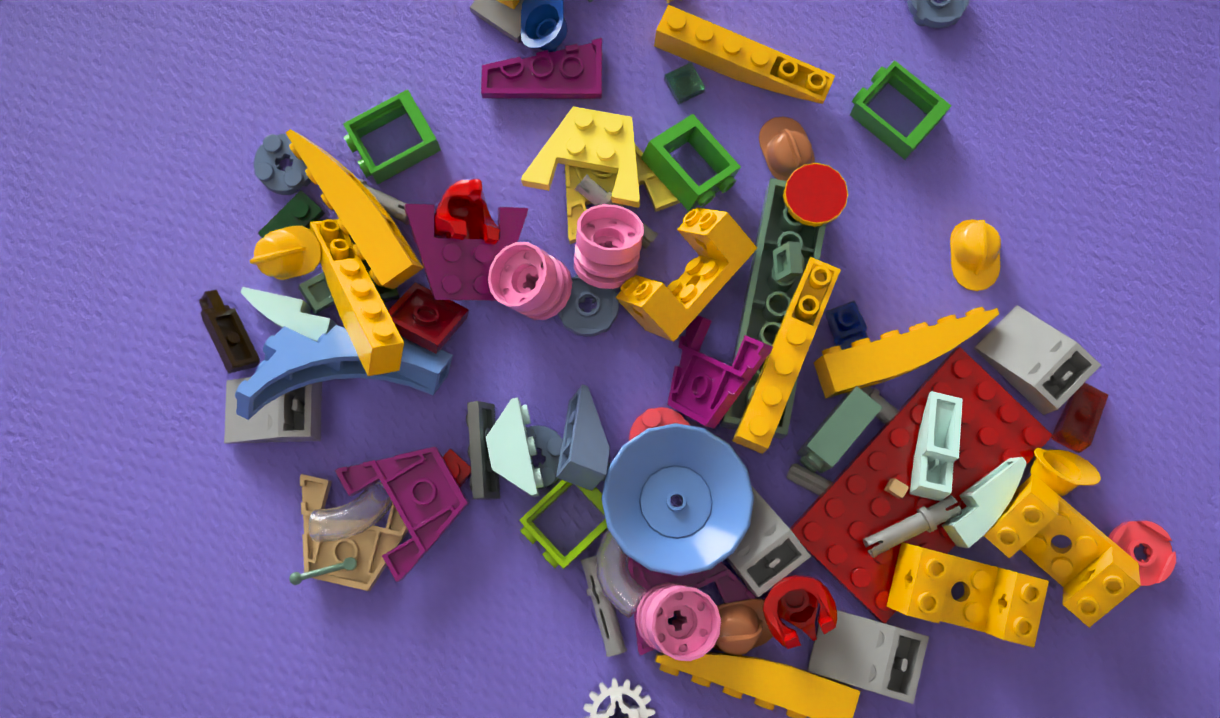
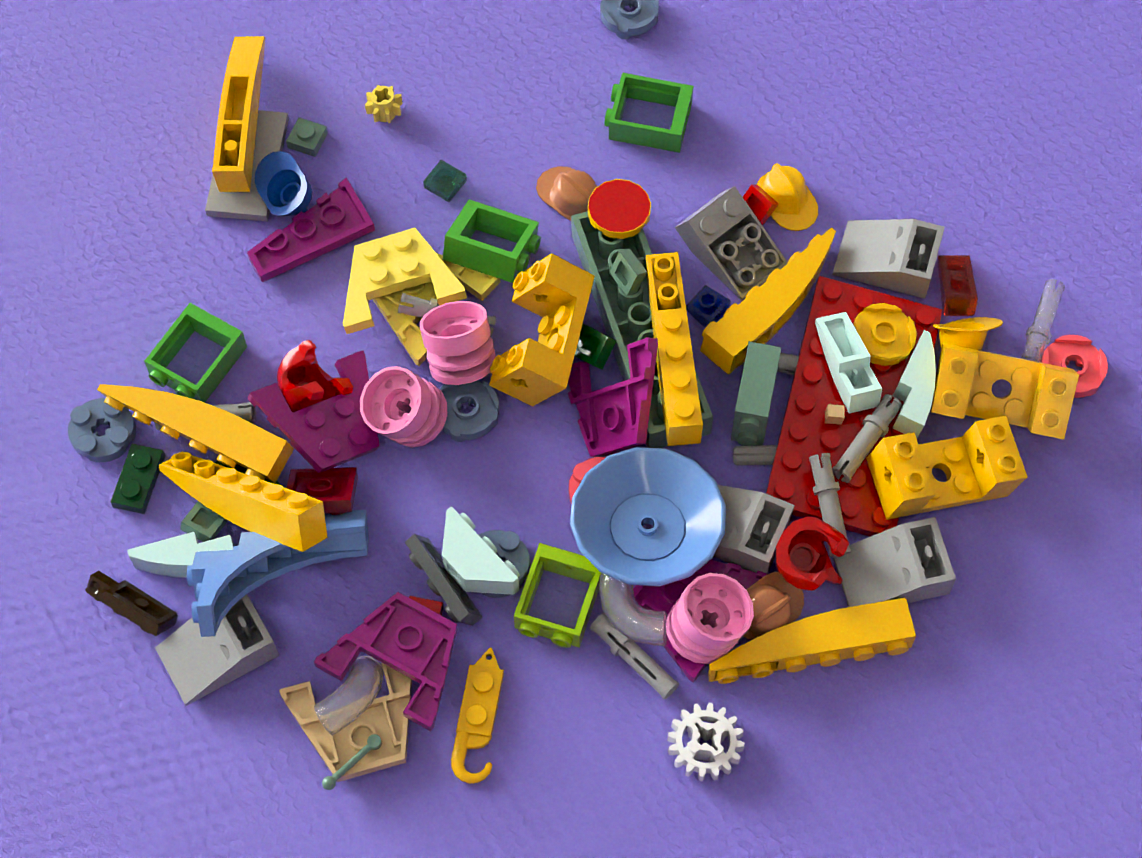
camera: 30 degrees left, 15 degrees down
(287, 252) = (154, 500): yellow piece -> none
(449, 582) = (477, 715): none -> yellow plate
(584, 443) = (534, 518): sand blue slope -> none
(723, 310) = (594, 346): none -> dark green plate
(739, 57) = (481, 135): yellow slope -> none
(846, 561) = (827, 489): none -> light grey pin
(901, 272) = (731, 242): none -> light grey slope
(942, 249) = (760, 203): none -> red plate
(977, 435) = (876, 329): none -> yellow tile
(1127, 506) = (1039, 333): none -> clear pin

